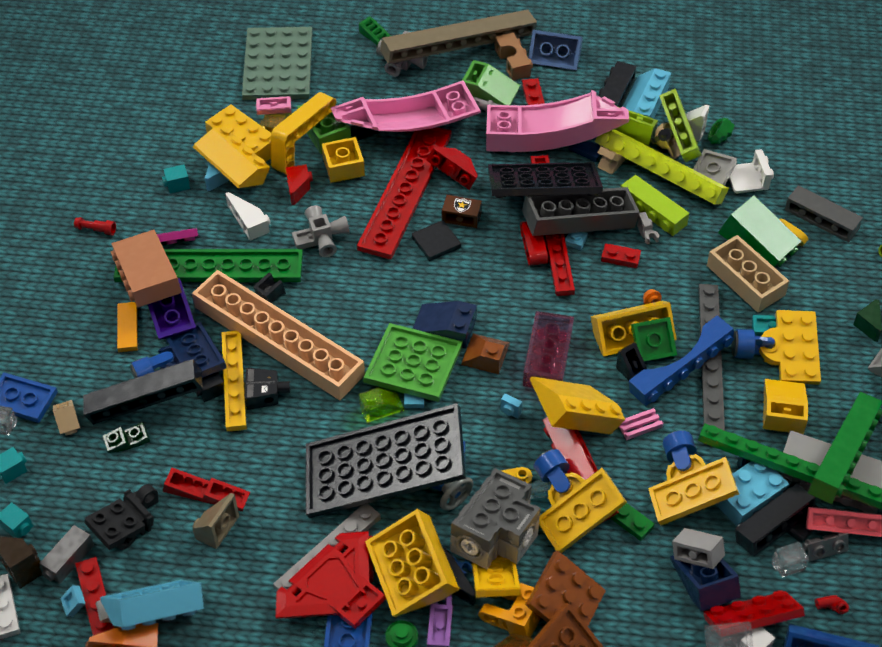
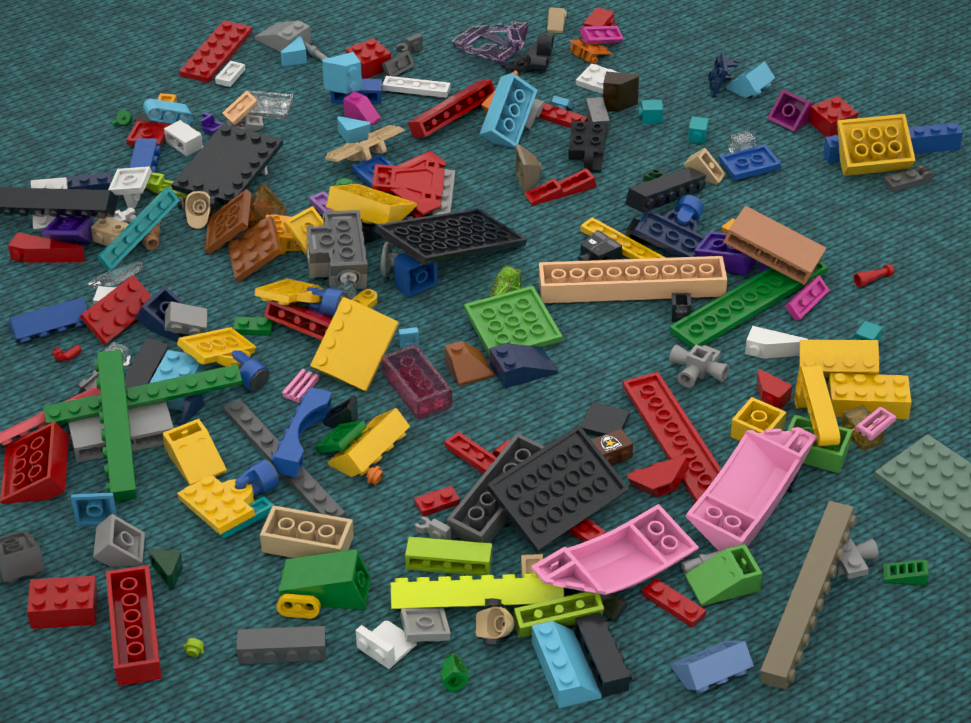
camera: 140 degrees right, 10 degrees down
(517, 63) = (726, 624): medium nougat arch -> none
(680, 125) = (488, 621): lime brick -> none
(698, 120) = (485, 657): white slope -> none

